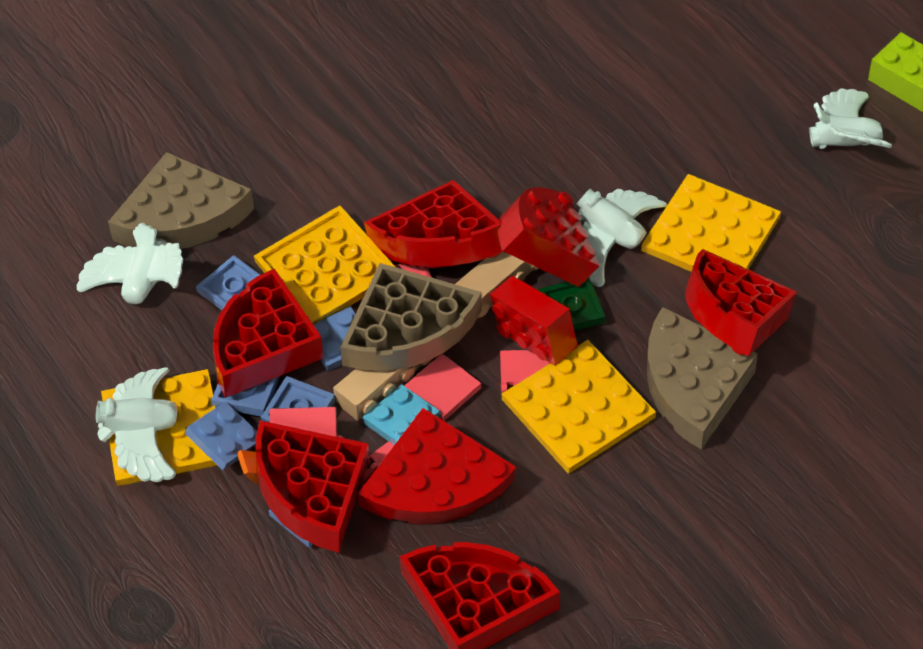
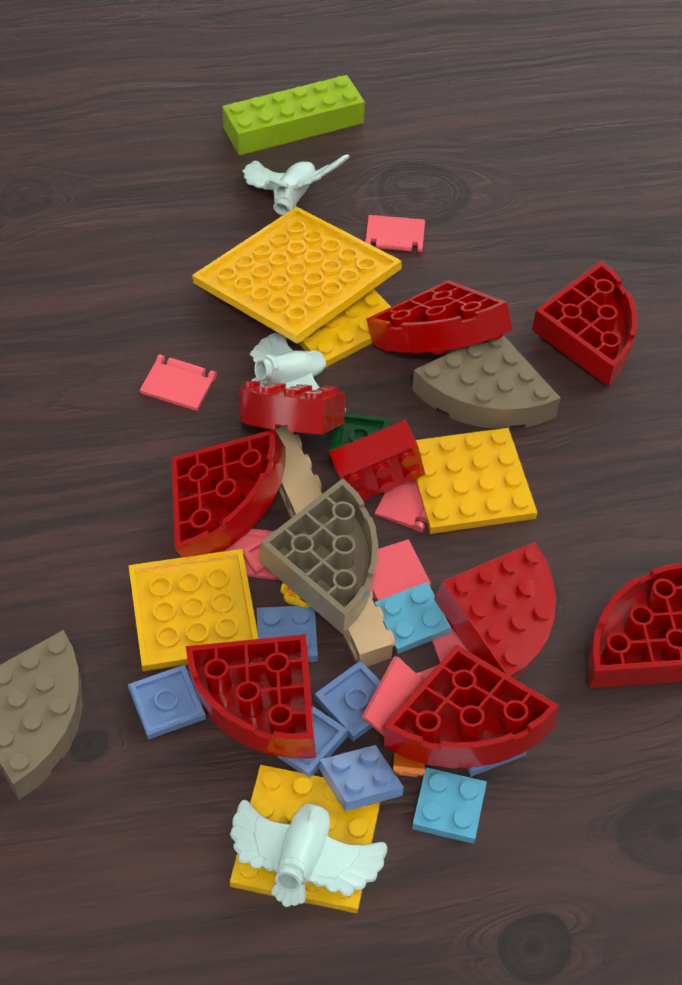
camera: 70 degrees left, 0 degrees up
(135, 267) = (91, 778): light aqua animal -> none
(236, 511) = (449, 805): none -> medium azure plate
(556, 157) = (178, 383): none -> coral piece
(728, 179) = (297, 273): none -> yellow plate
(833, 431) = (591, 322): none -> red brick
(850, 236) = (395, 233): none -> coral piece

